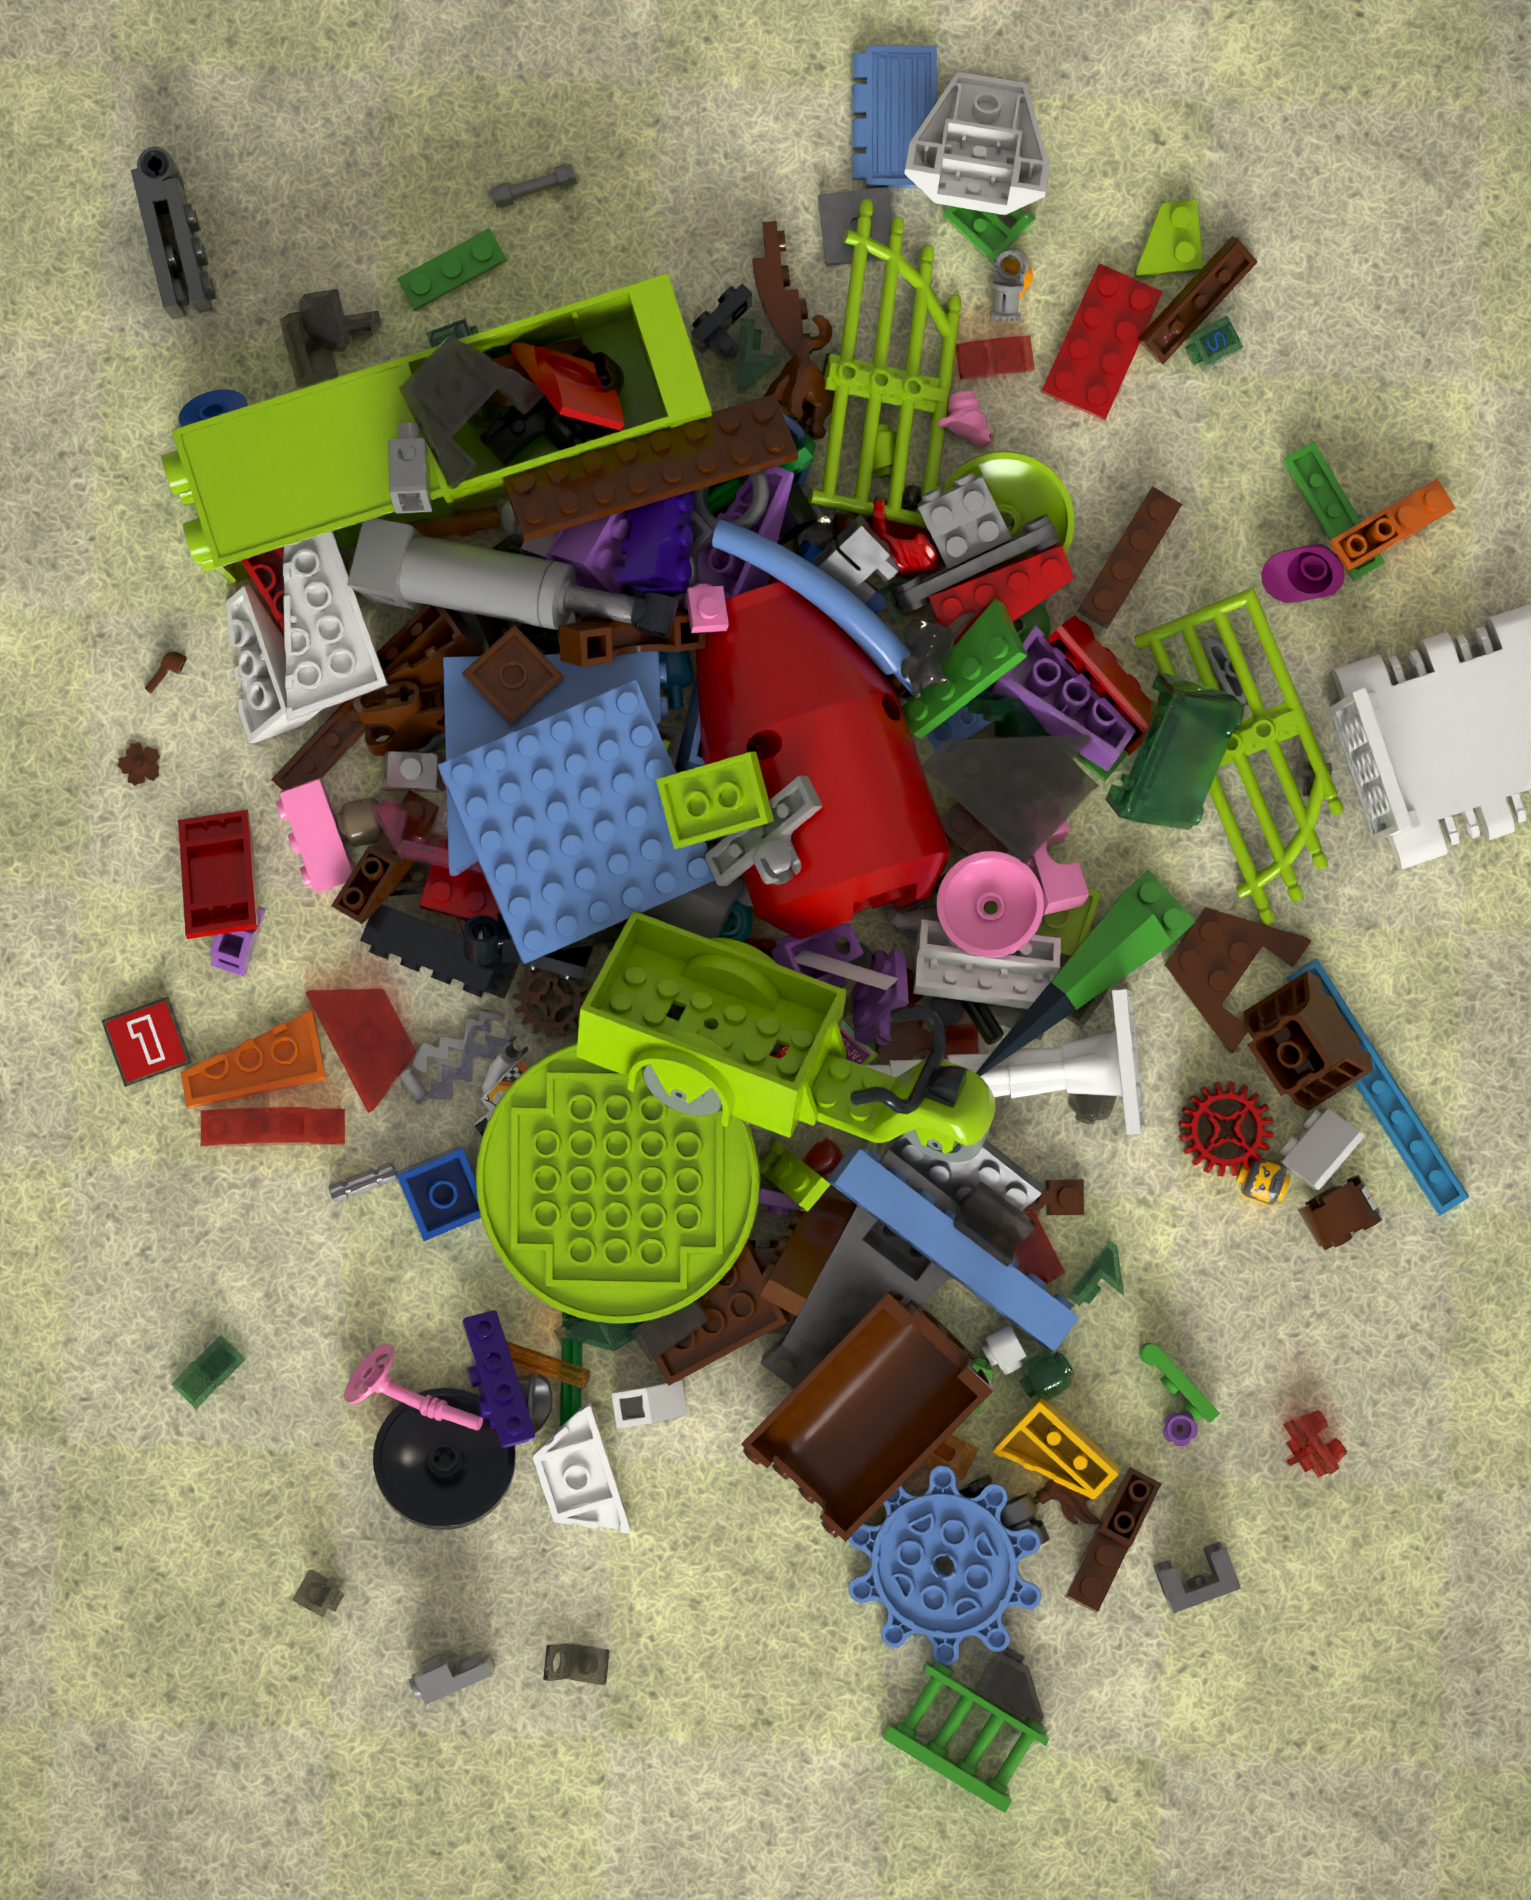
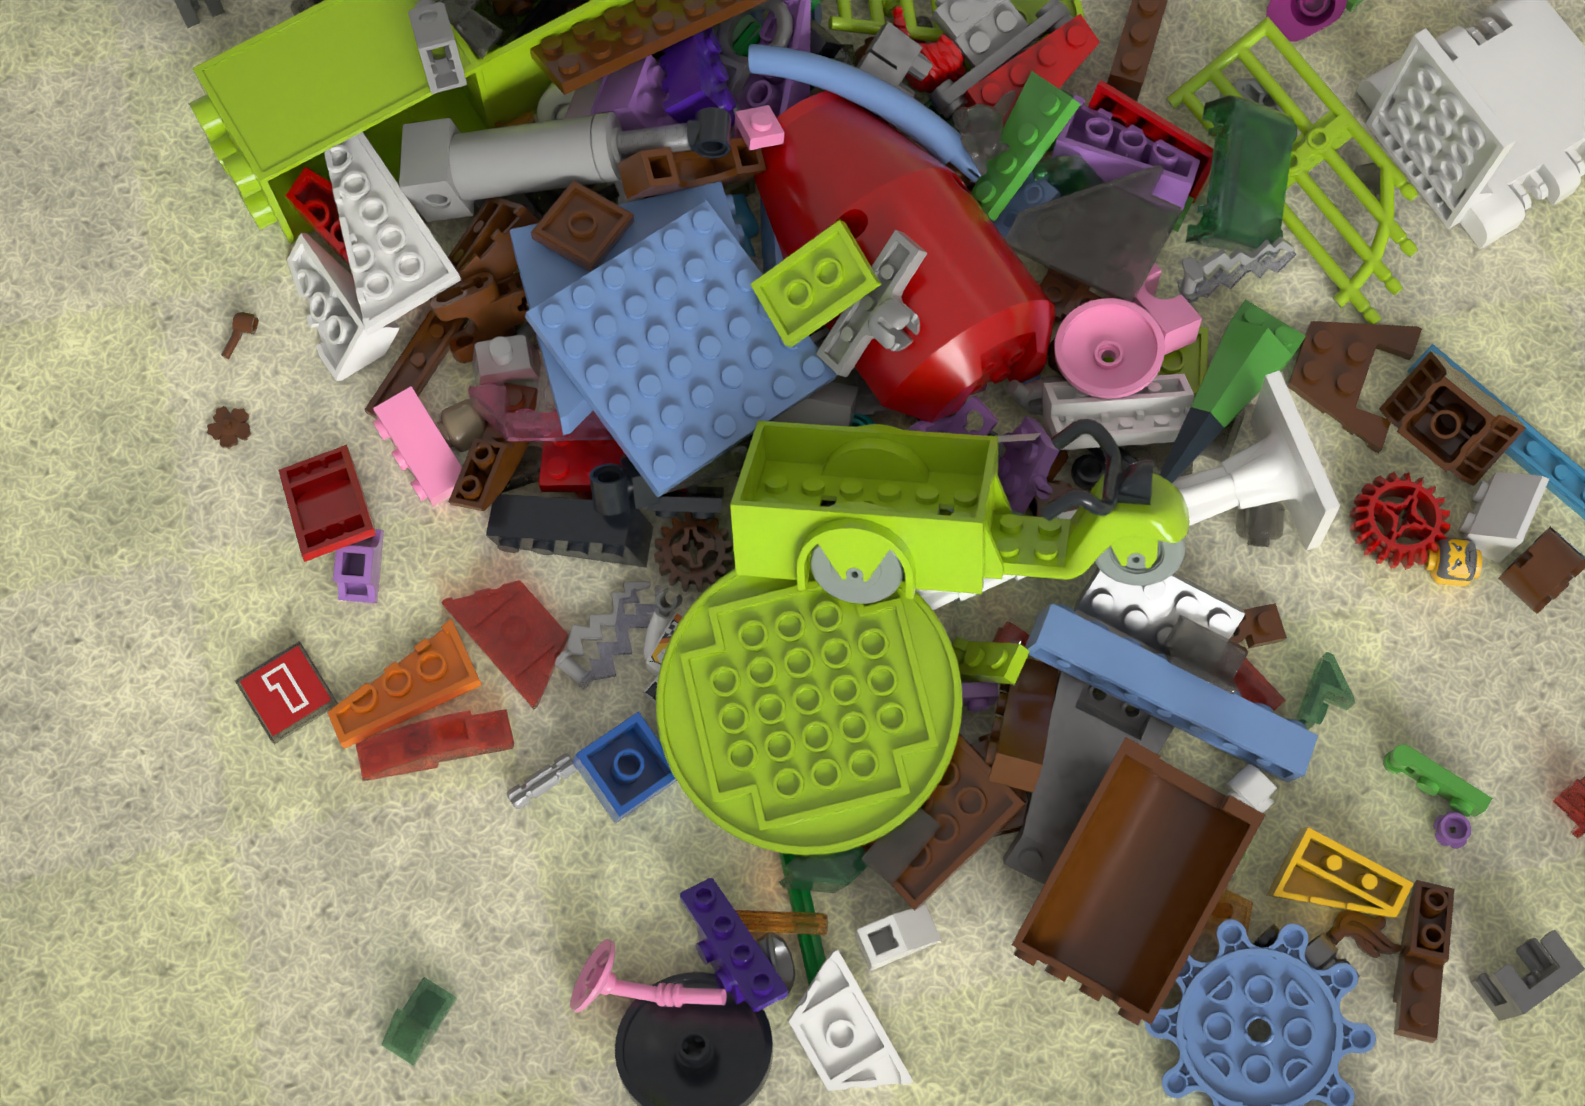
camera: 15 degrees left, 15 degrees down
(1046, 1375) = (1301, 805): clear green head -> none
(1104, 842) = (1250, 262): none -> piece

